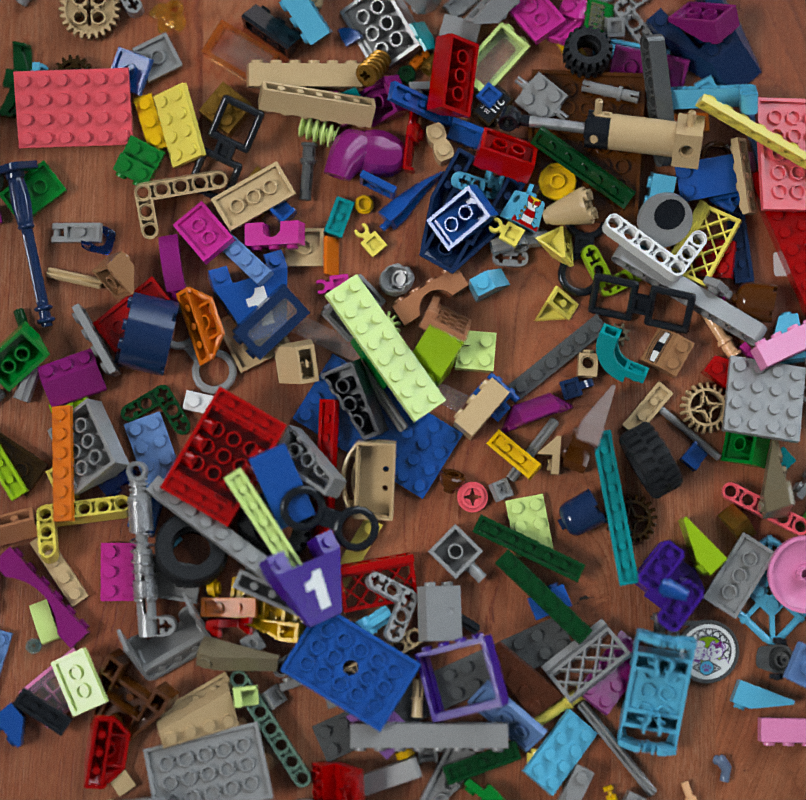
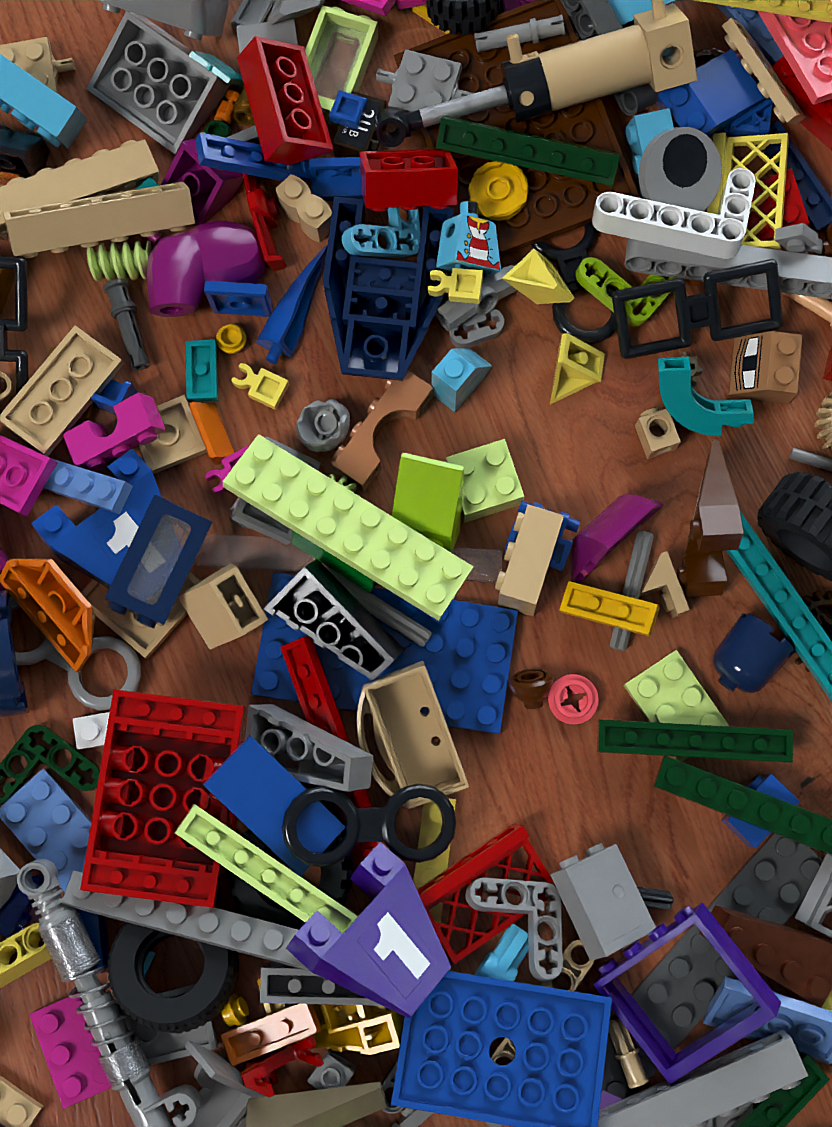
camera: 15 degrees left, 5 degrees down
(350, 36) = (114, 114): blue tile -> none
(373, 67) = (163, 137): pearl gold piece -> none
(445, 319) = (420, 447): nougat fence -> none
(457, 554) = (590, 795): light grey brick -> none
(462, 216) = (381, 289): blue slope -> none
(501, 489) = (611, 670): light grey tile -> none
(557, 357) = (608, 439): dark grey plate -> none
(572, 209) = (537, 216): tan cone -> none
(573, 388) = (652, 474): dark blue plate -> none
(649, 406) = (773, 456): tan plate -> none

